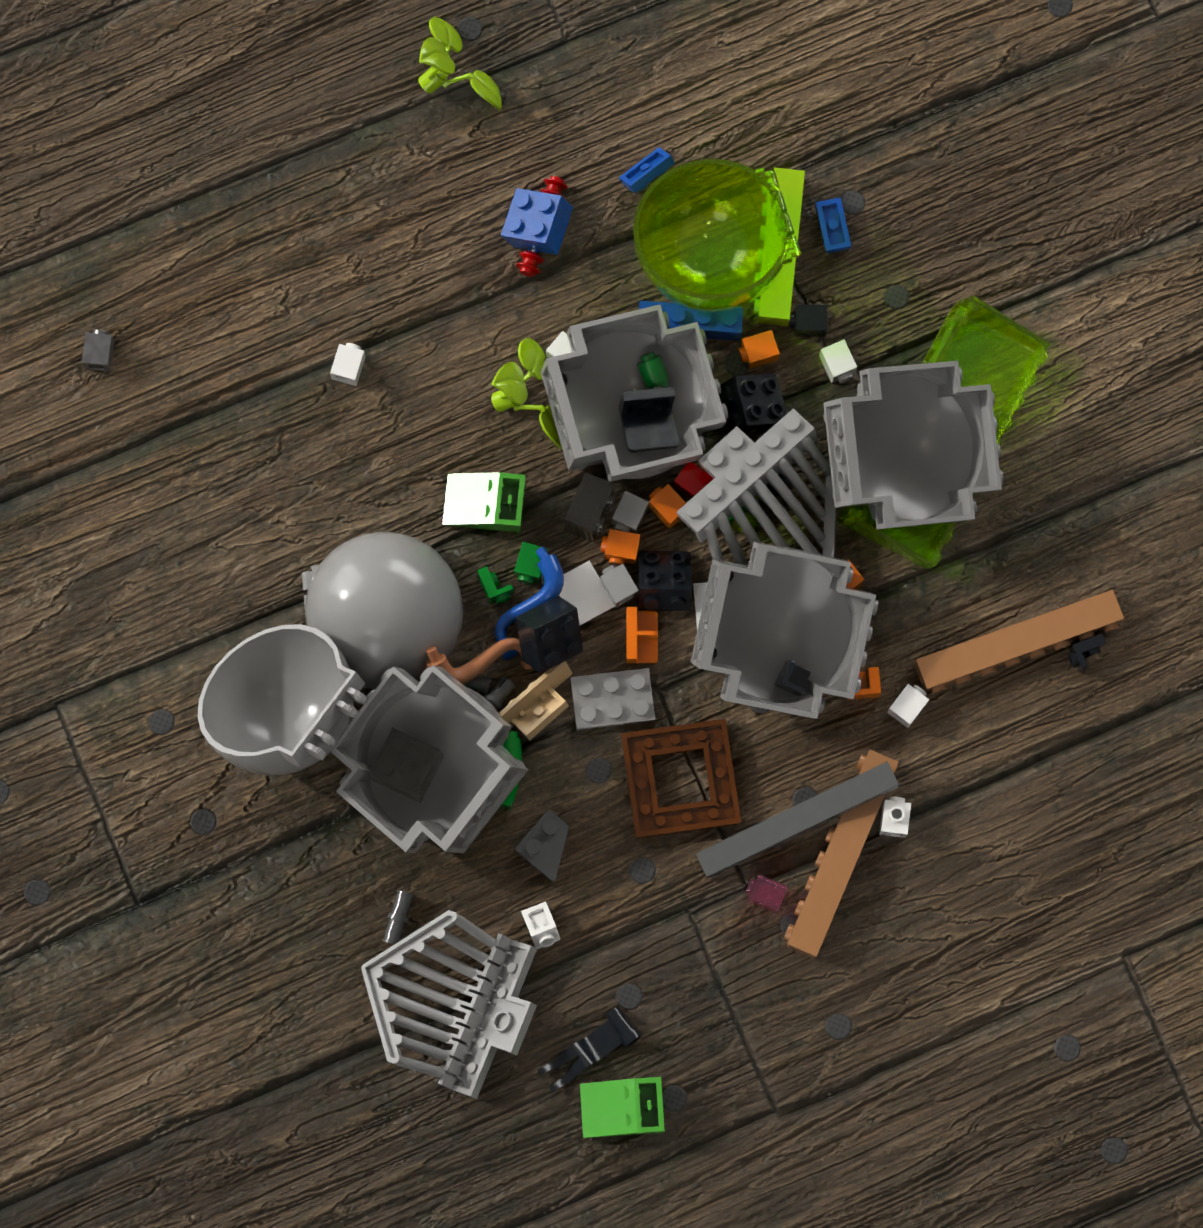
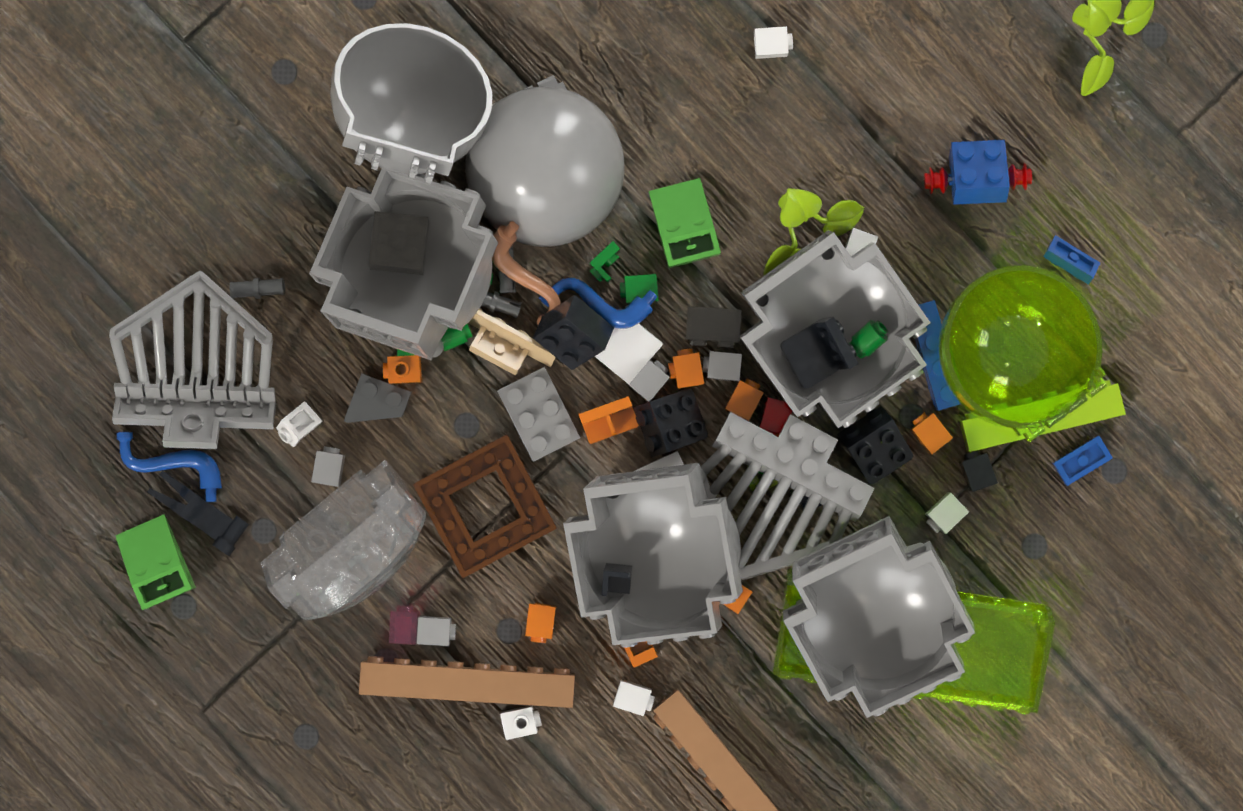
camera: 75 degrees right, 10 degrees up
(525, 808) = (403, 369): none -> orange brick
(544, 1028) = (196, 459): none -> blue animal
(591, 910) = (328, 467): none -> light grey brick
(671, 905) = (346, 545): none -> clear windscreen
(782, 864) = (435, 631): none -> light grey brick
(797, 820) = (483, 632): dark grey tile -> none
(807, 765) = (540, 622): none -> orange brick

